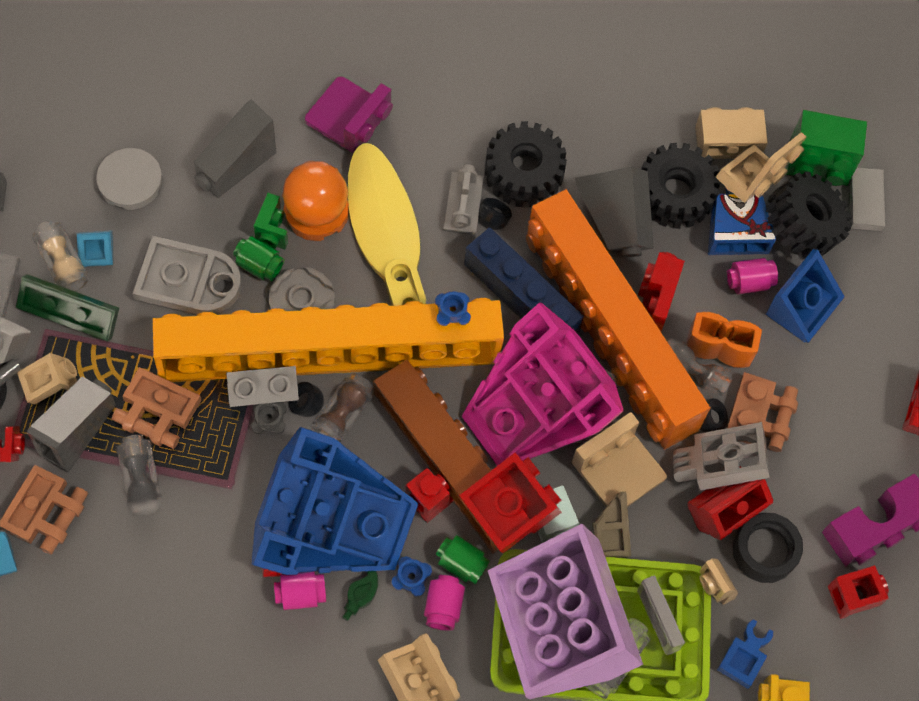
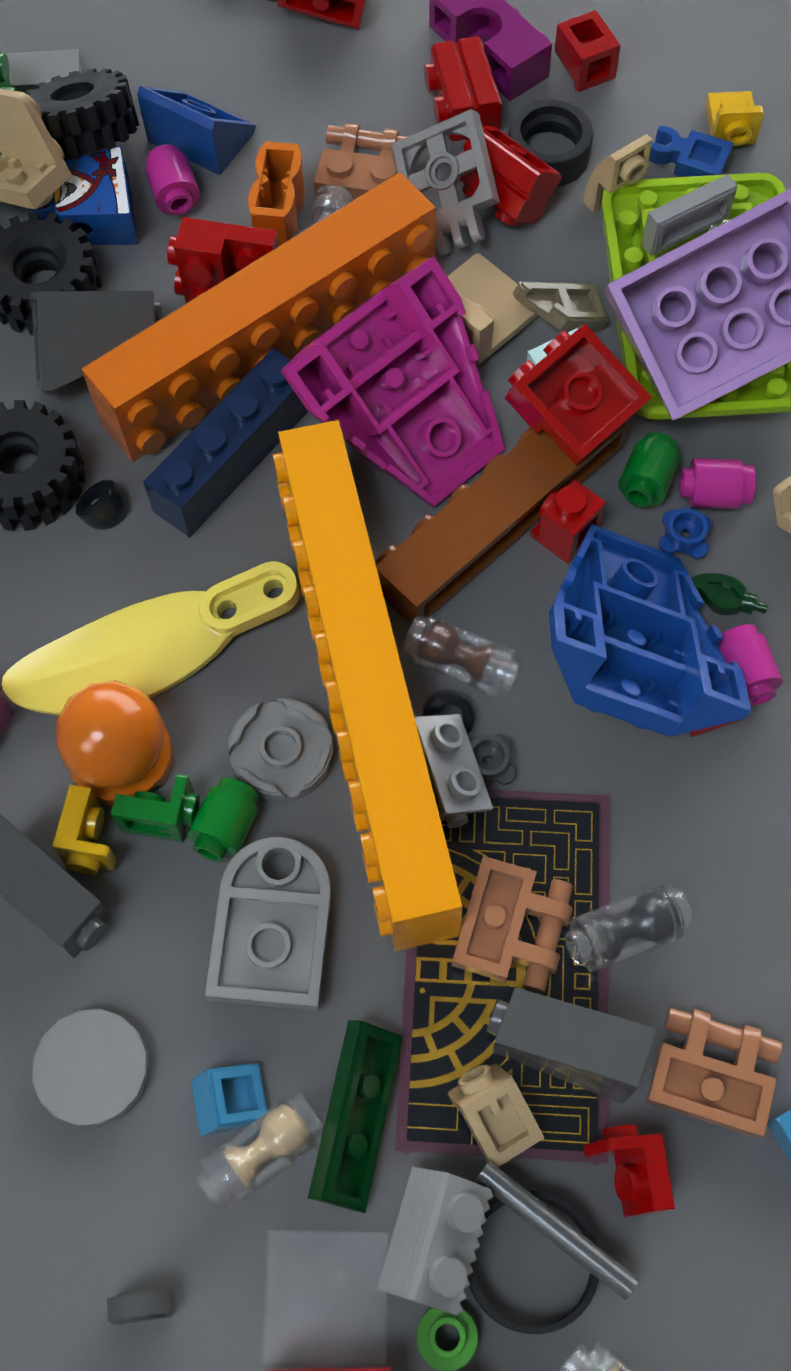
camera: 90 degrees left, 0 degrees up
(264, 177) = (78, 824): none -> yellow bracket
(456, 300) = (307, 469): blue plate -> none
(464, 200) = (87, 544): light grey hinge -> none
(824, 490) = (462, 82): none -> red brick

